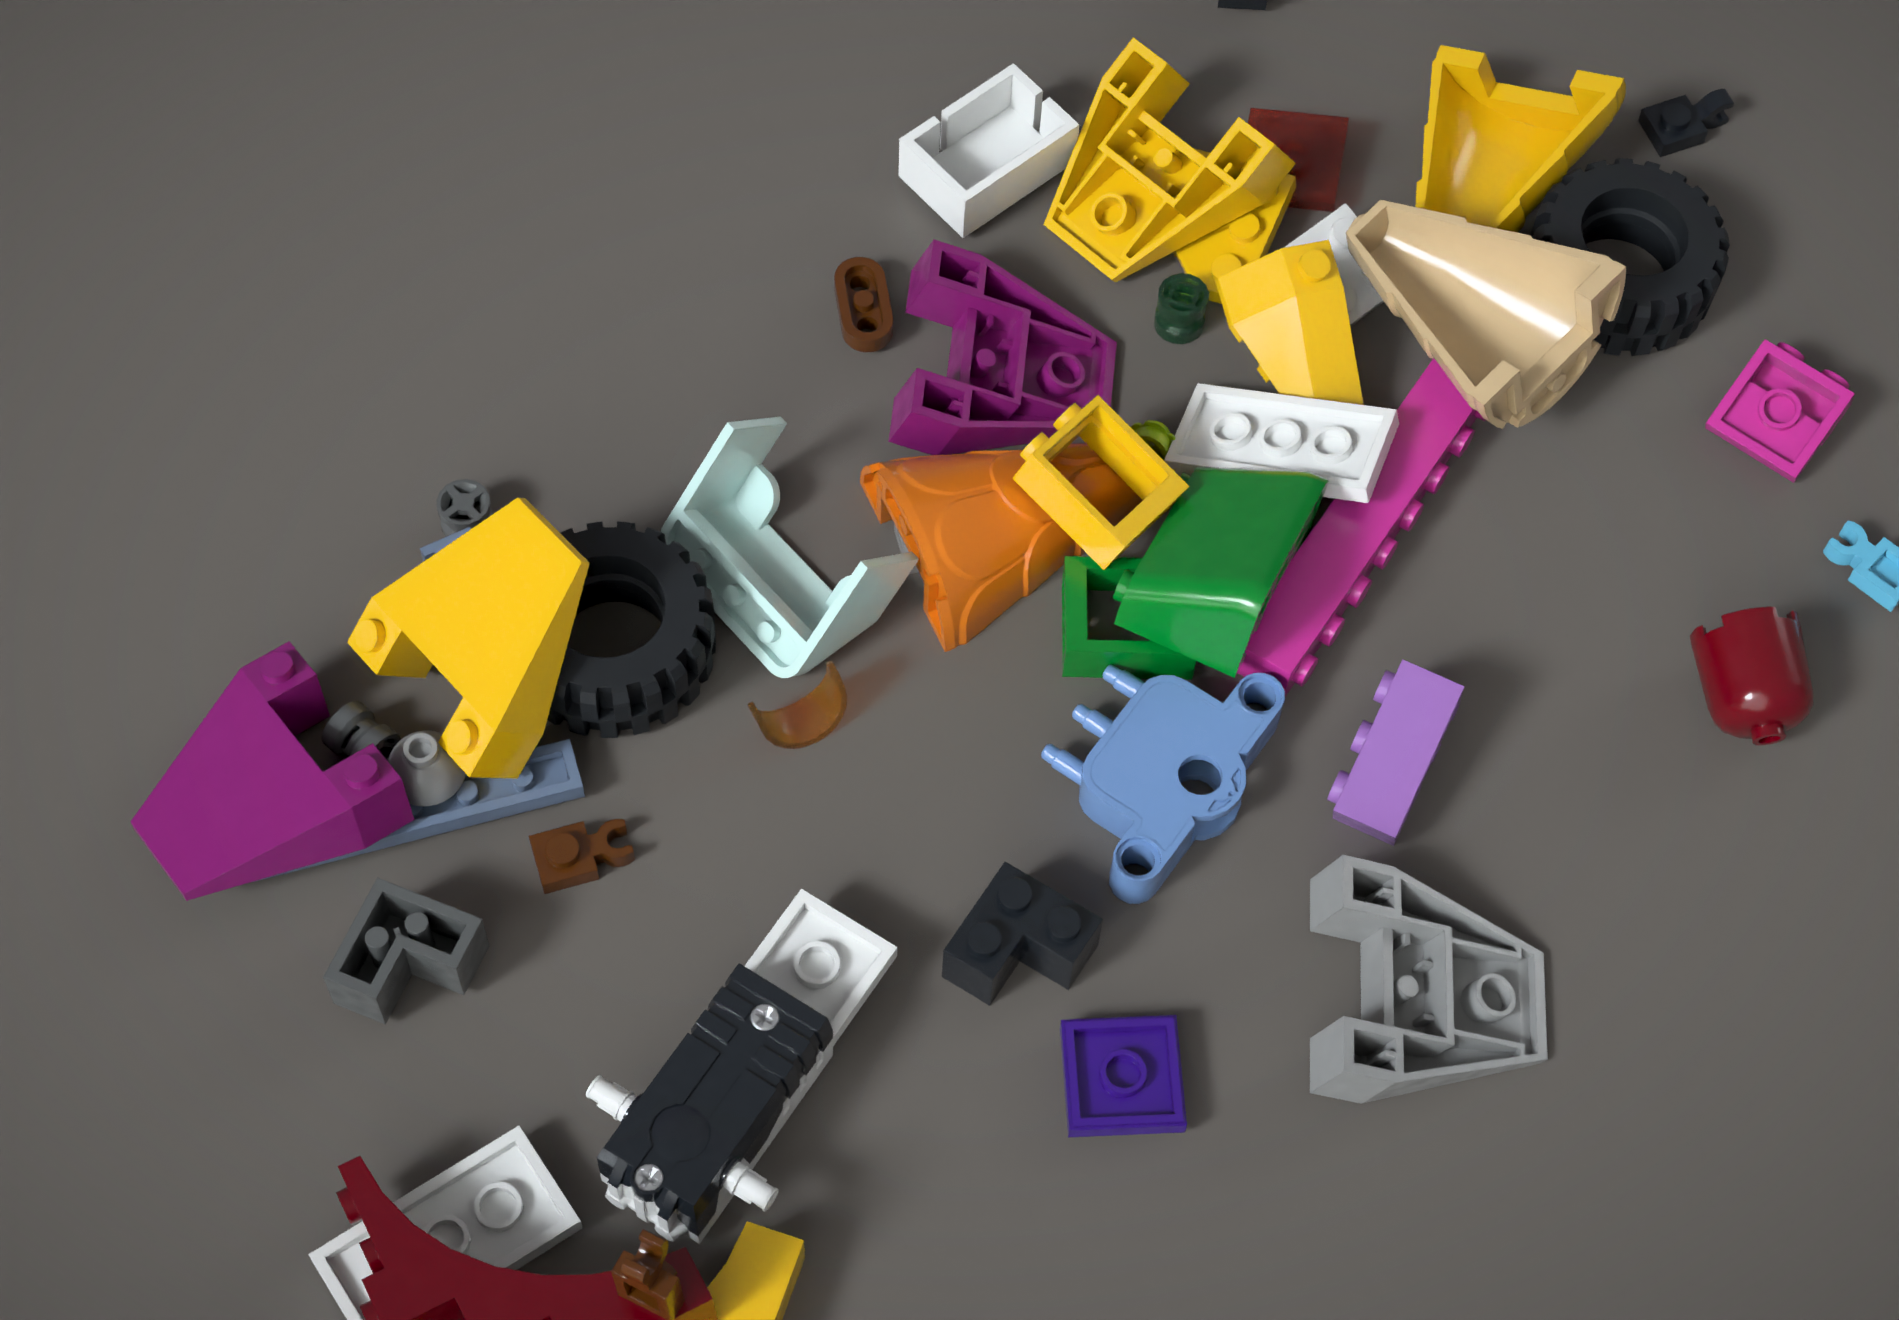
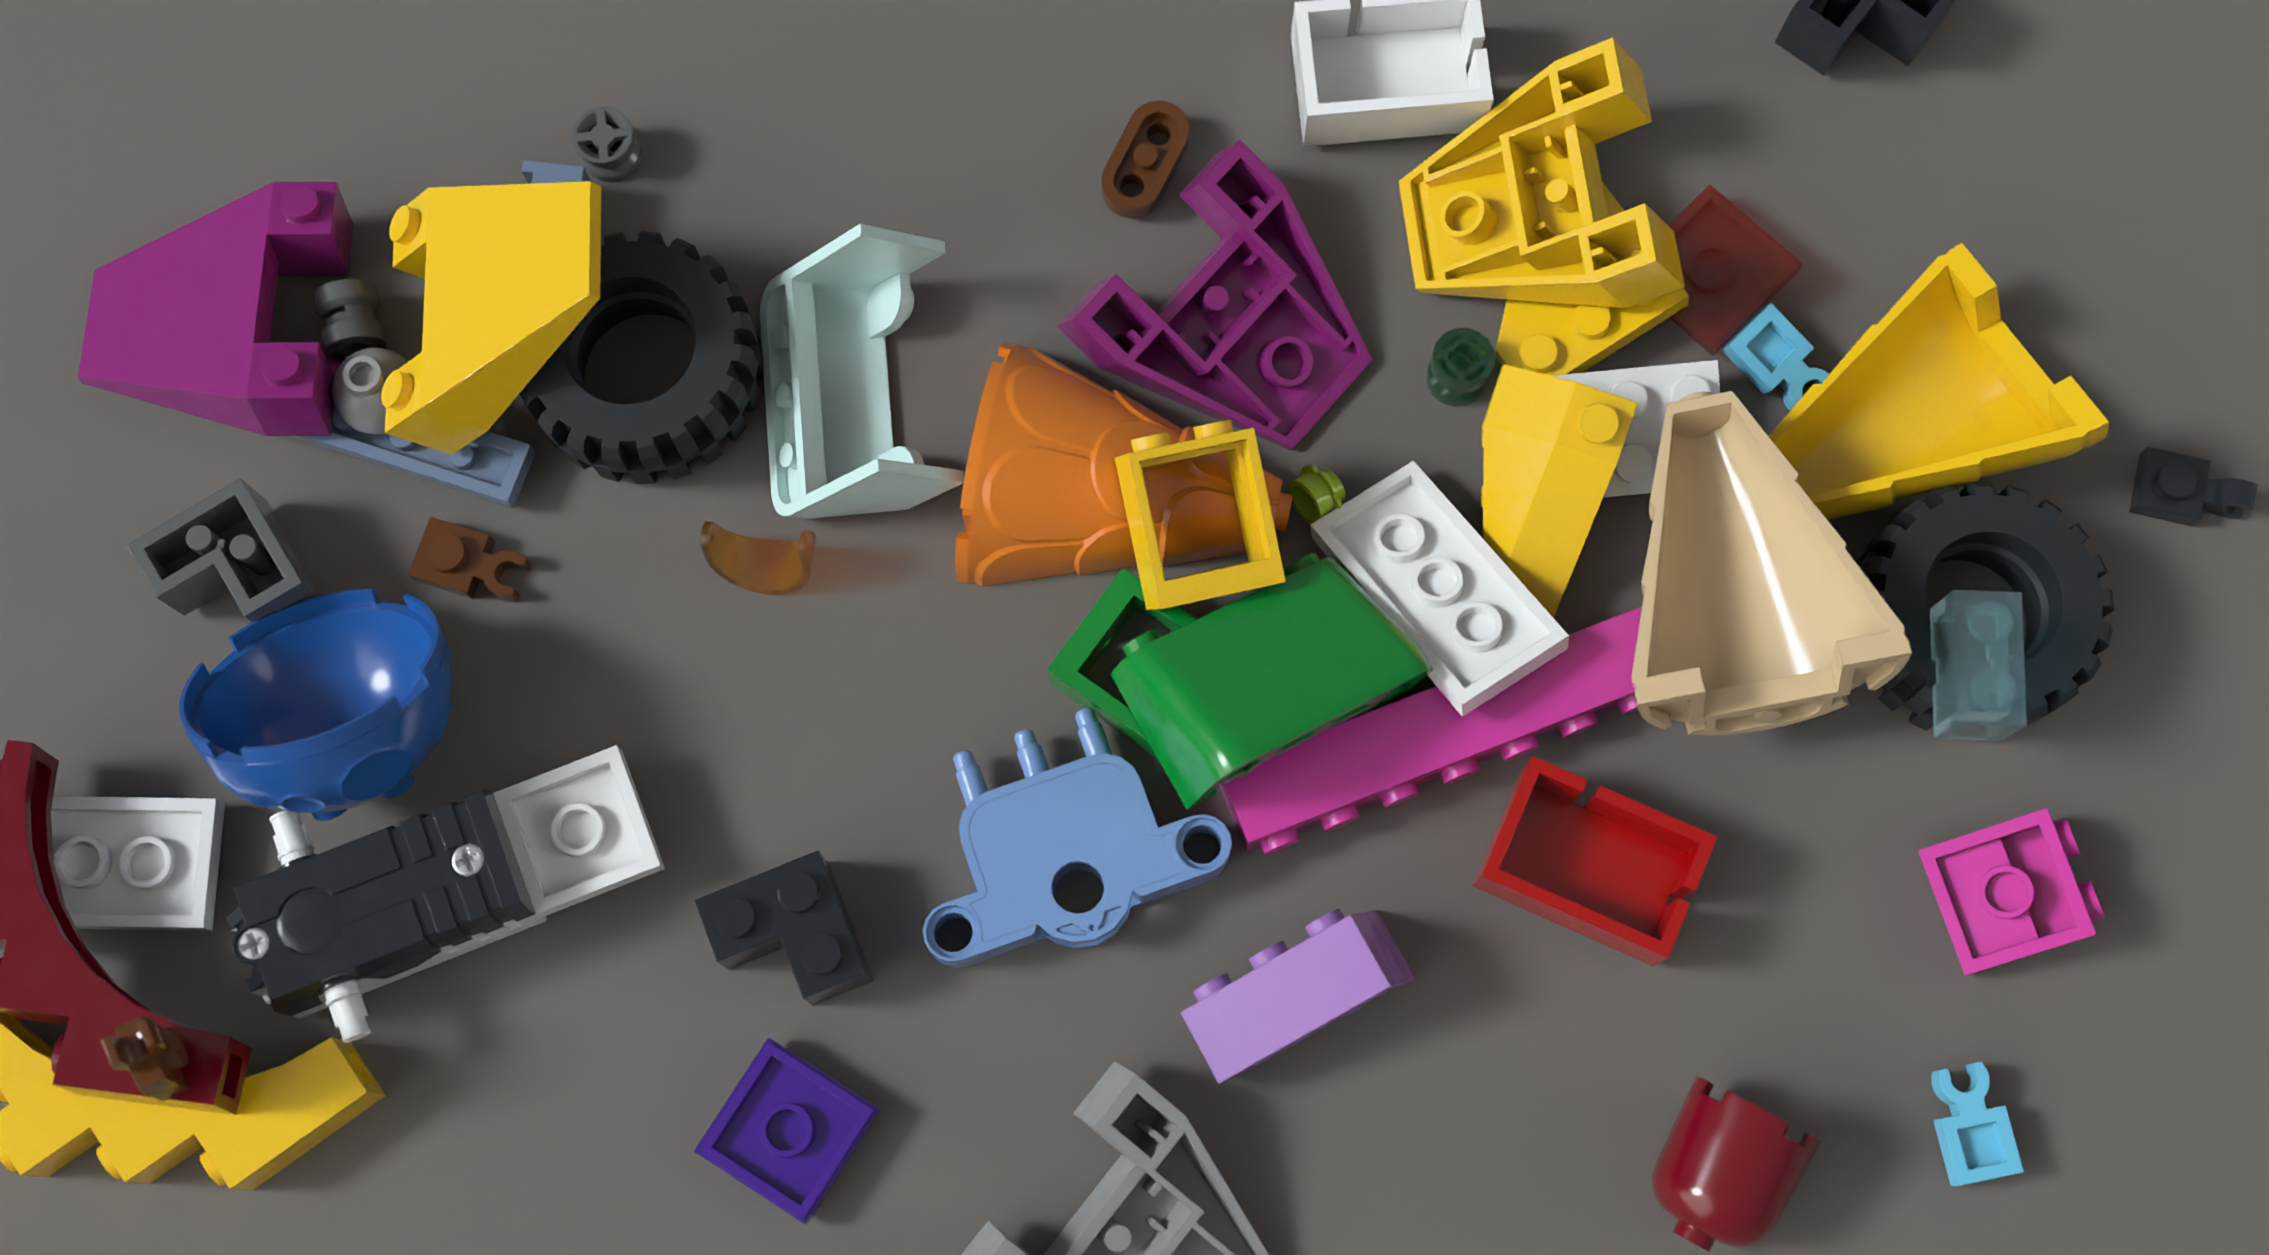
camera: 40 degrees right, 15 degrees up
(572, 982) = (324, 703): none -> blue rock
(1368, 181) = (1772, 355): none -> medium azure plate
(1521, 552) = (1595, 865): none -> red piece
(1665, 265) = (1978, 665): none -> clear light blue brick

